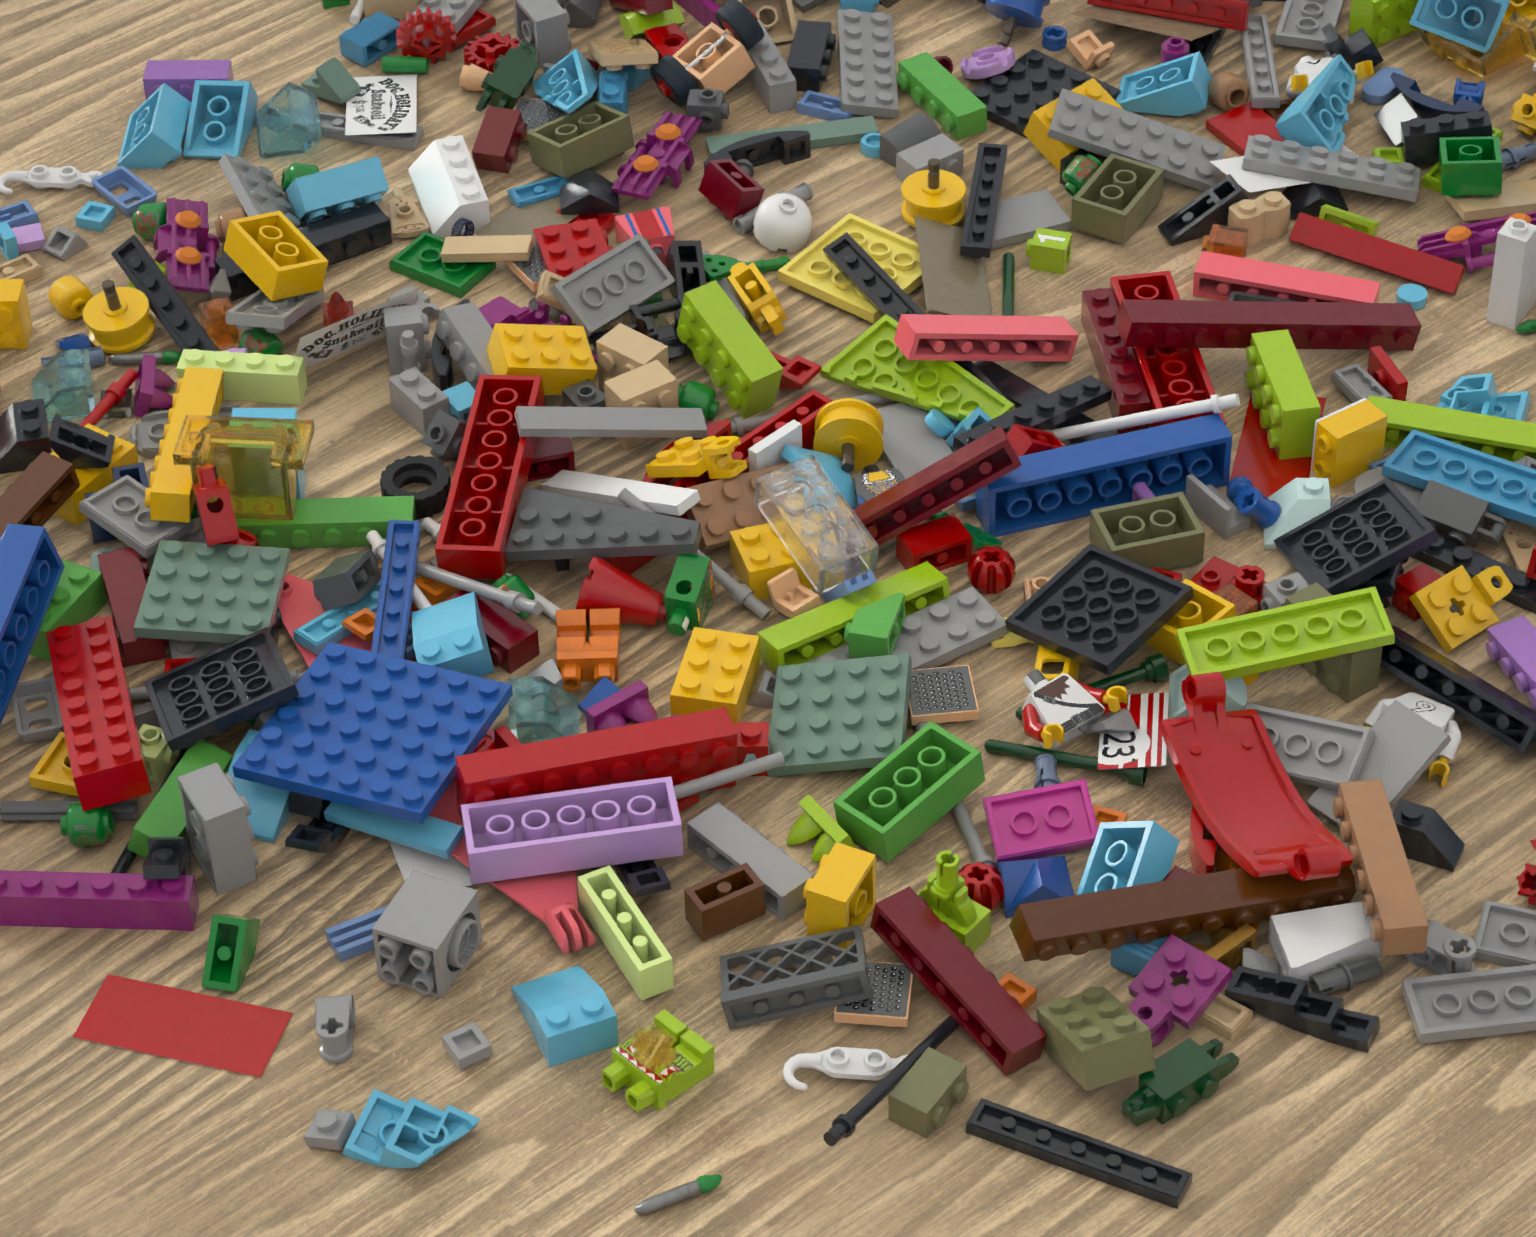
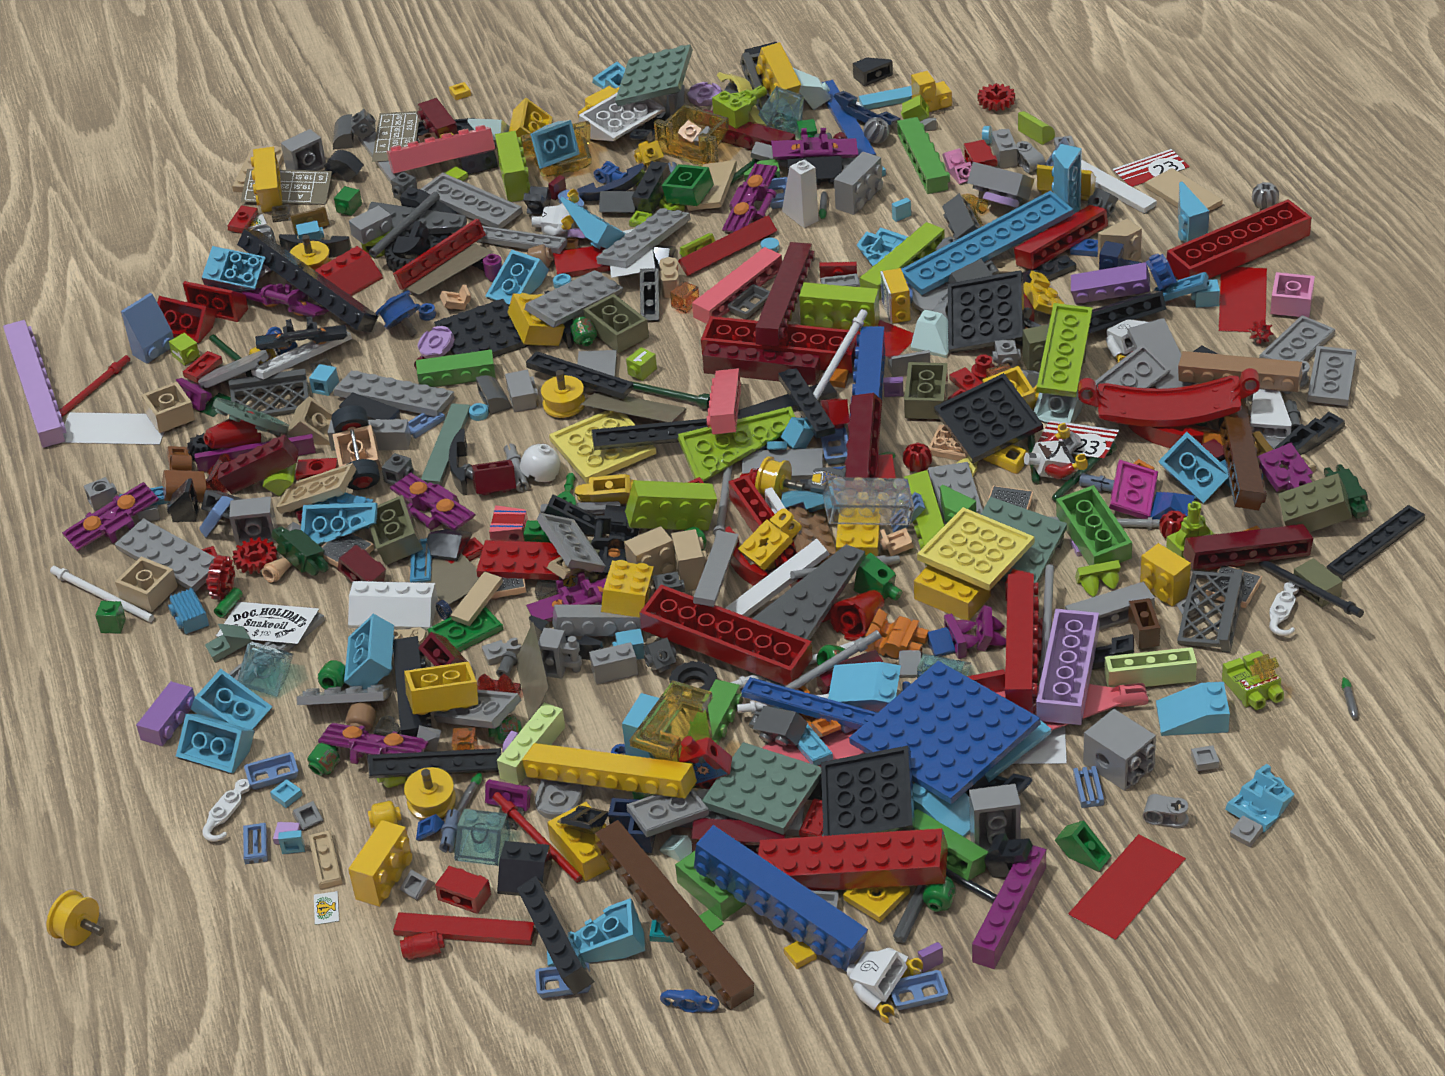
camera: 65 degrees left, 0 degrees up
(366, 253) = (440, 650): none -> dark red brick
(775, 664) = (975, 548): none -> light yellow plate
(1199, 128) = (560, 280): none -> medium azure tile
(1252, 501) = (916, 345): blue connector -> none
(1400, 57) = (557, 186): none -> dark red tile

